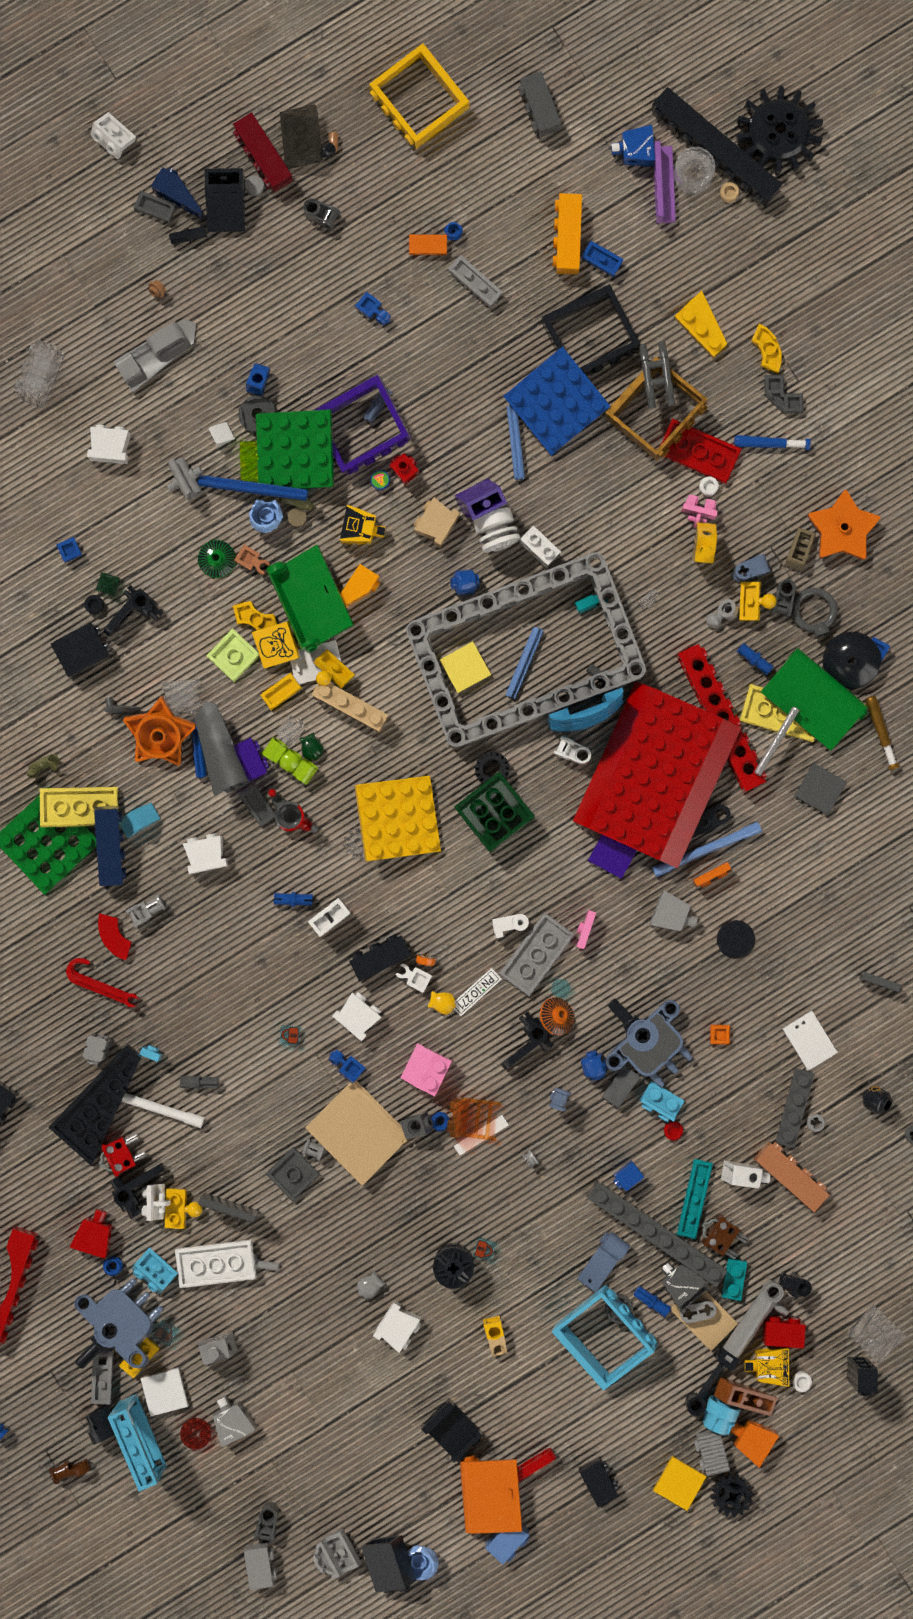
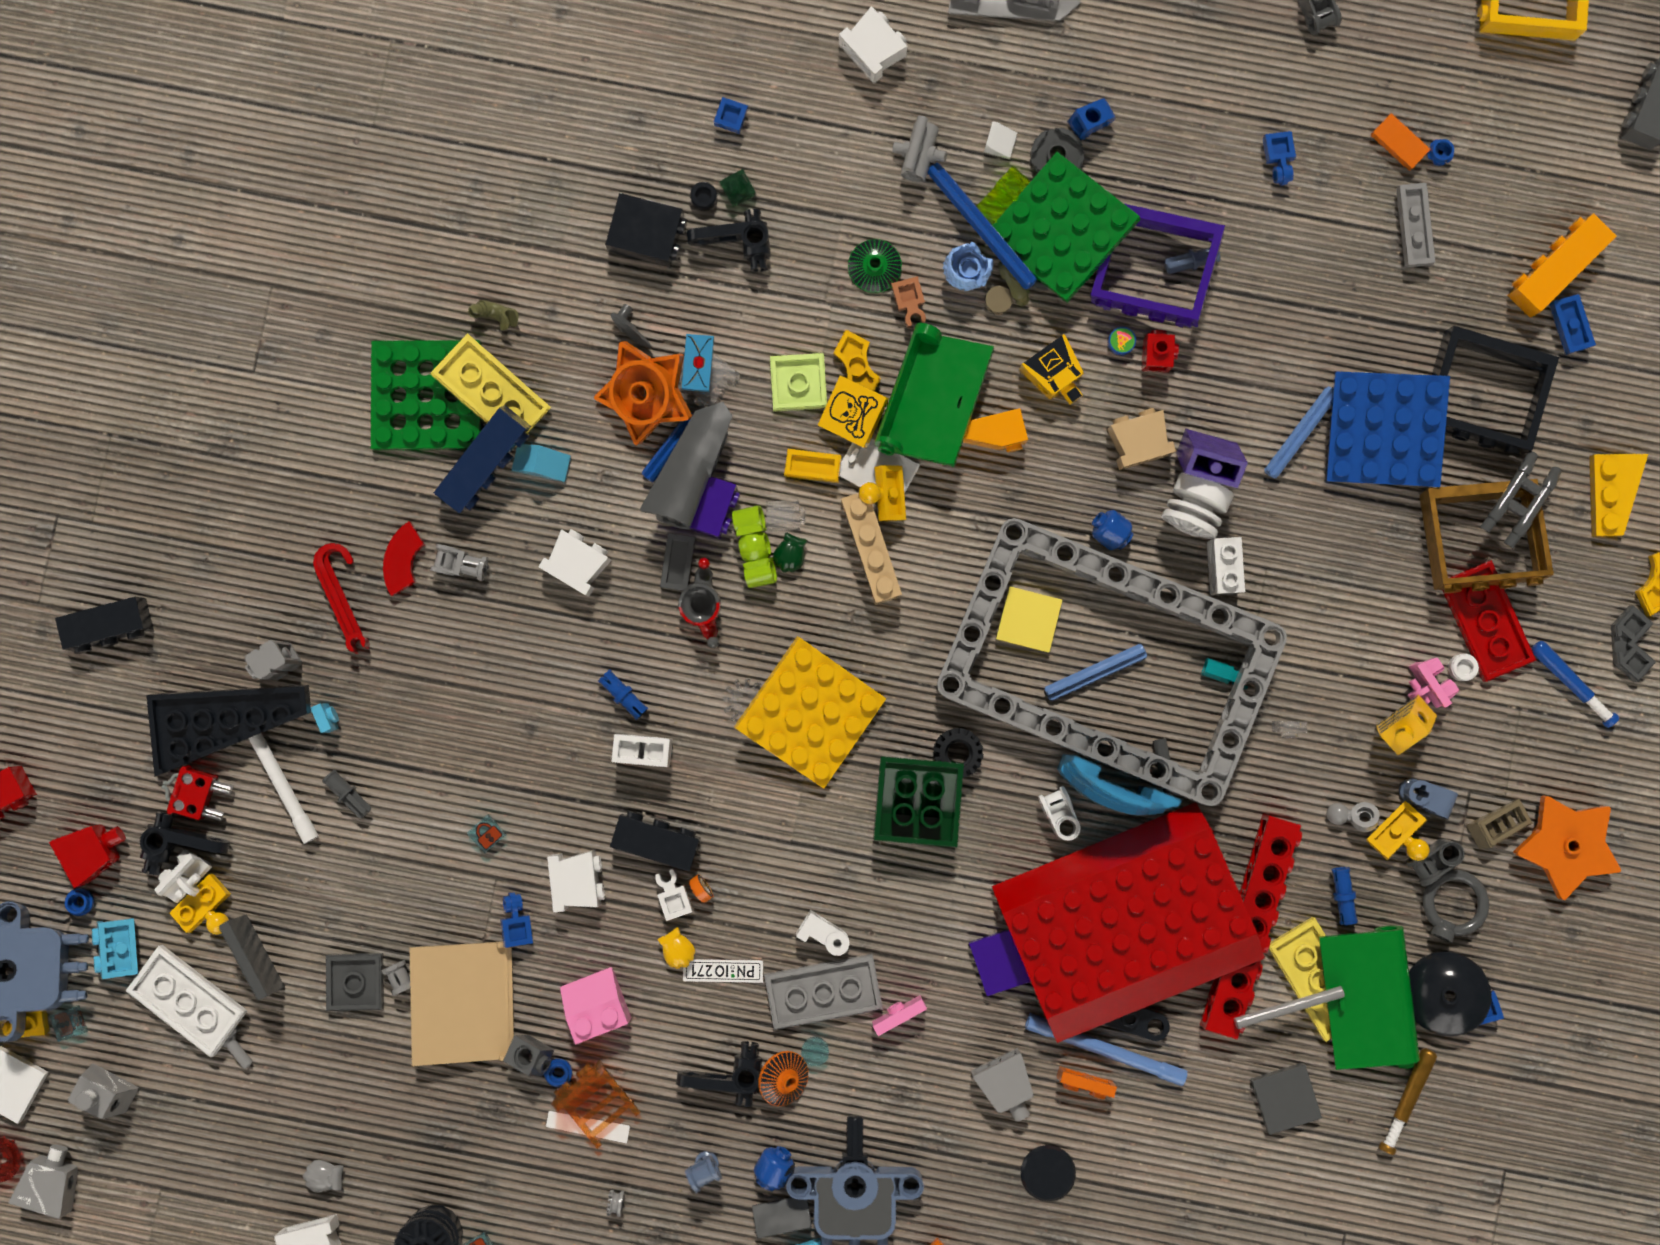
camera: 40 degrees right, 0 degrees up
(173, 693) = (698, 363): none -> dark azure tile

